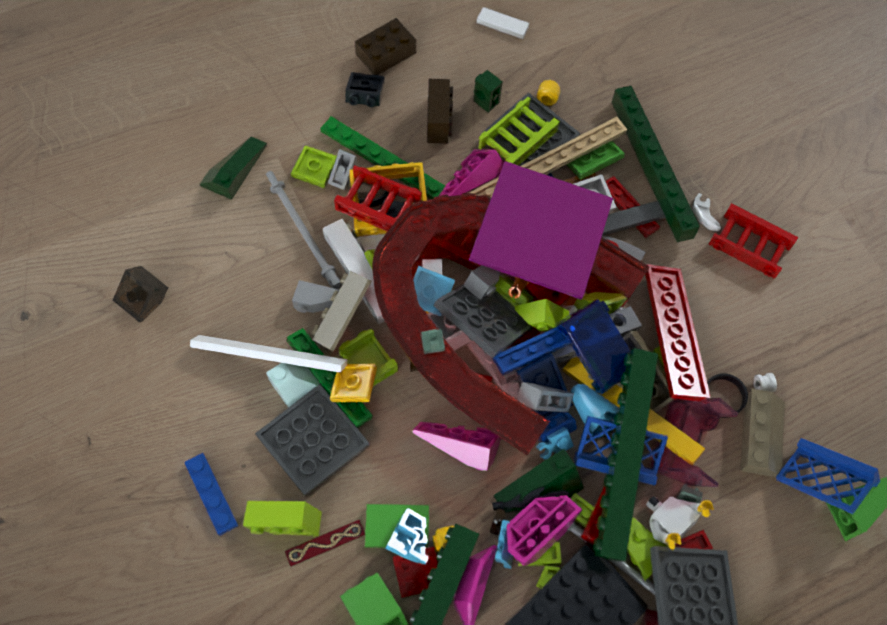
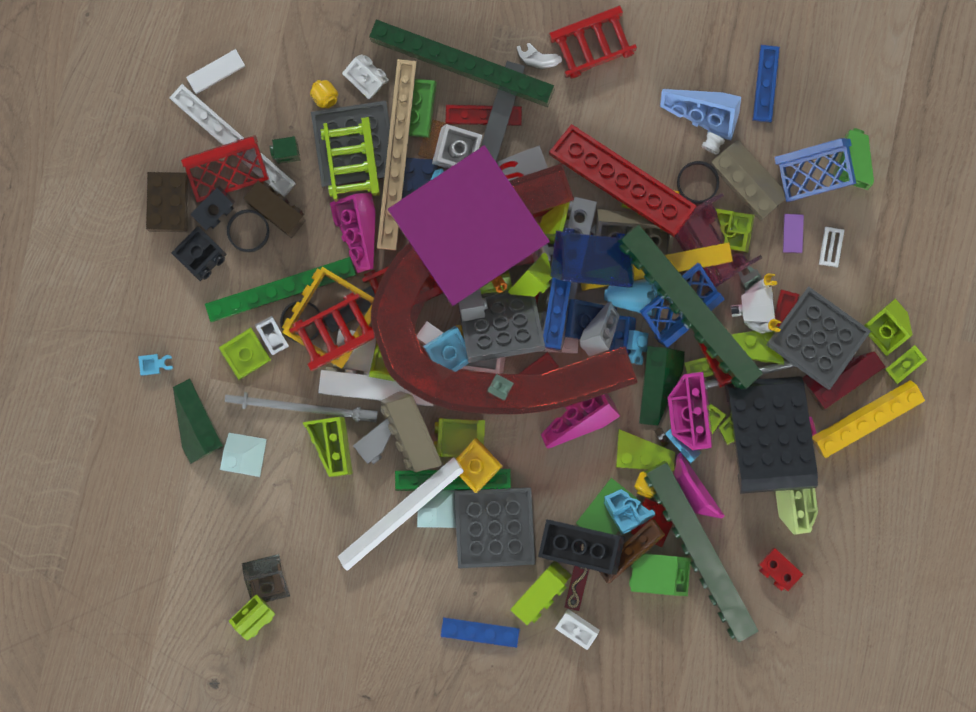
camera: 45 degrees left, 20 degrees up
(98, 302) = (252, 617): none -> lime brick
(232, 213) = (243, 454): none -> light aqua slope
(257, 110) = (151, 364): none -> medium azure plate
(271, 575) = (577, 629): none -> white hinge
(288, 266) = (332, 444): none -> lime wedge
(348, 521) = (563, 542): none -> black brick
(376, 568) = (636, 547): none -> reddish brown tile
(398, 69) = (203, 214): none -> black brick
(403, 96) = (242, 212): none -> black tyre
(446, 52) = (223, 151): none -> red fence
(464, 64) = (226, 134): none -> white tile
(468, 511) = (641, 454): none -> lime wing
(527, 499) = (663, 401): black piece -> none
(585, 110) = (365, 75): none -> white bracket
(718, 454) = (736, 229): none -> lime slope
(755, 504) = (793, 233): none -> medium lavender tile
(760, 554) = (828, 263): none -> white tile
(783, 357) = (710, 110): none -> light blue wedge
(845, 391) = (766, 83): none -> blue tile

